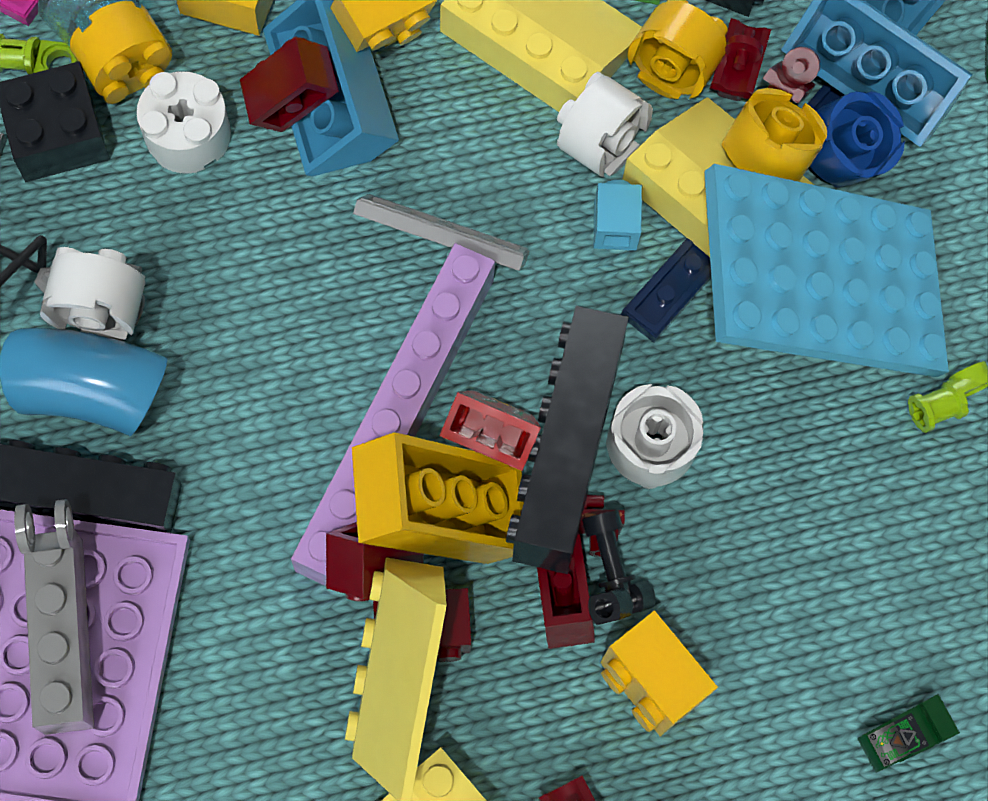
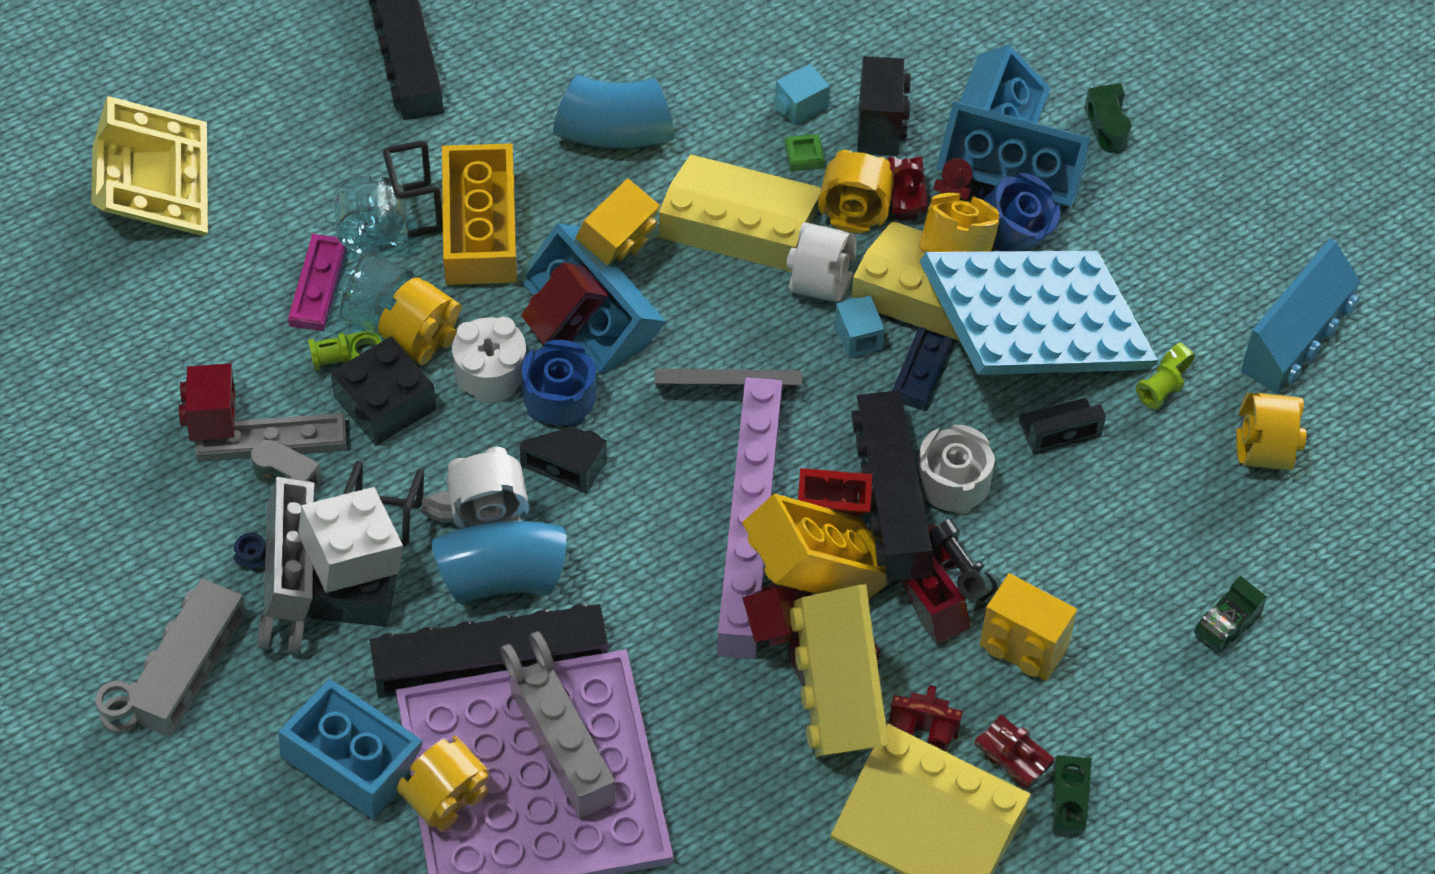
camera: 15 degrees left, 15 degrees down
(223, 269) = (566, 456): none -> black slope
(246, 177) = (559, 383): none -> blue brick
(475, 732) = (927, 715): none -> dark red hips
(804, 414) = (1062, 425): none -> black panel

